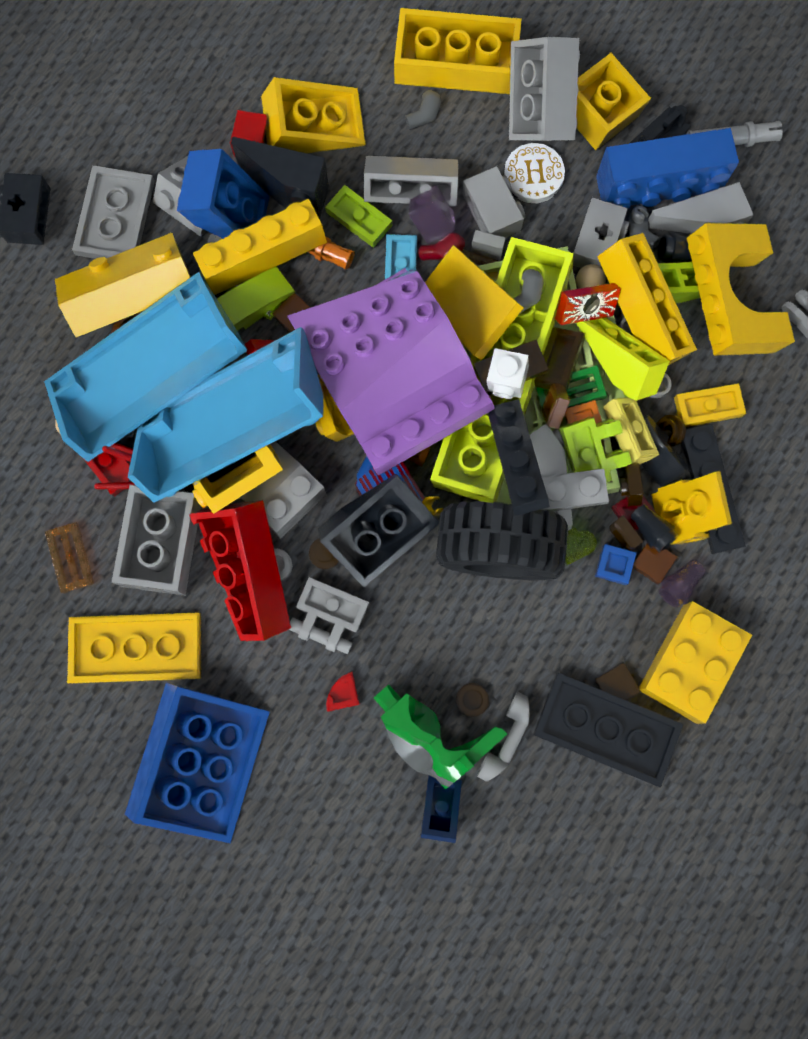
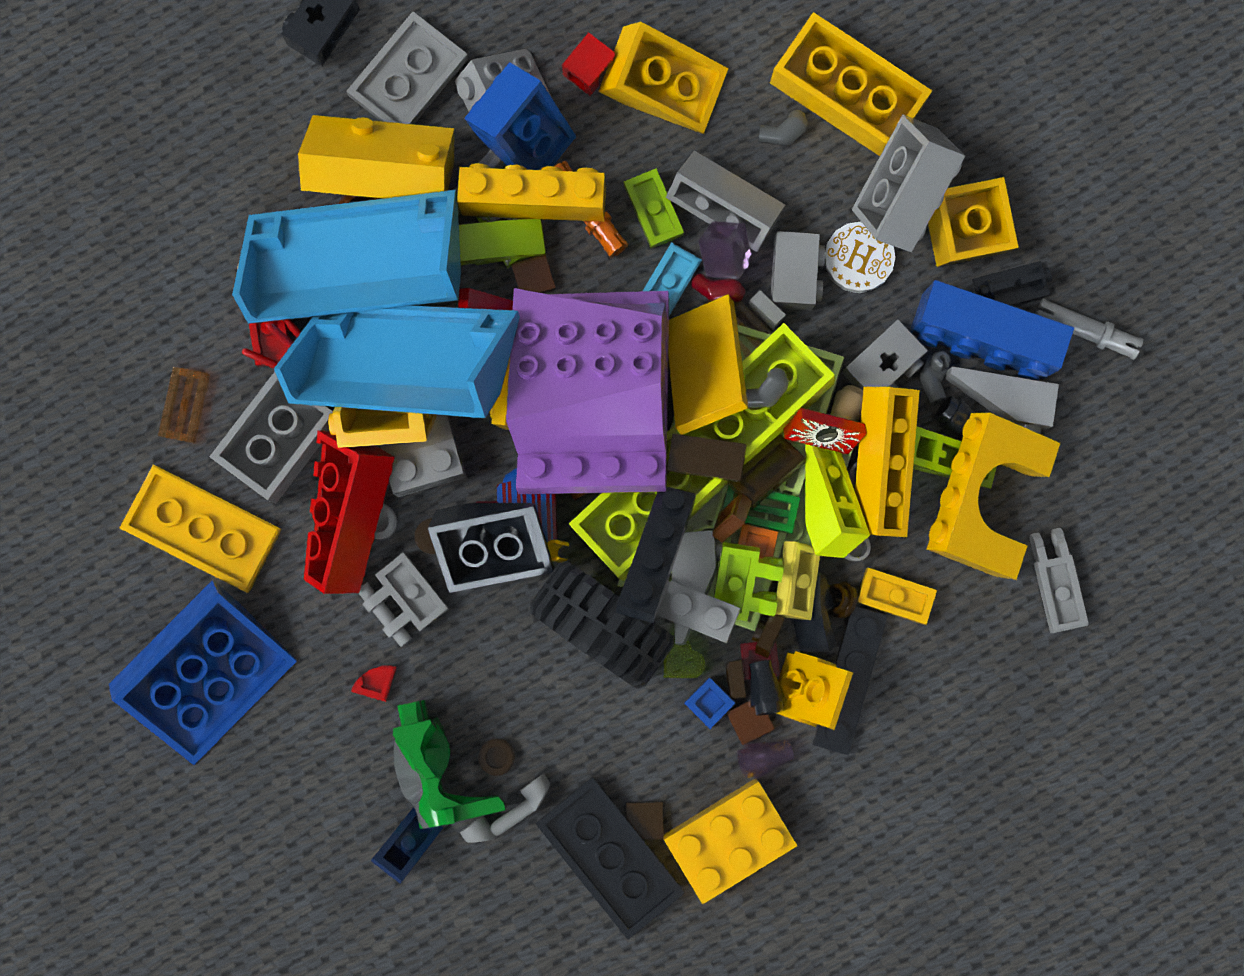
camera: 25 degrees right, 5 degrees up
(284, 173) = (603, 136): black slope -> none
(507, 373) = (693, 466): white brick -> none

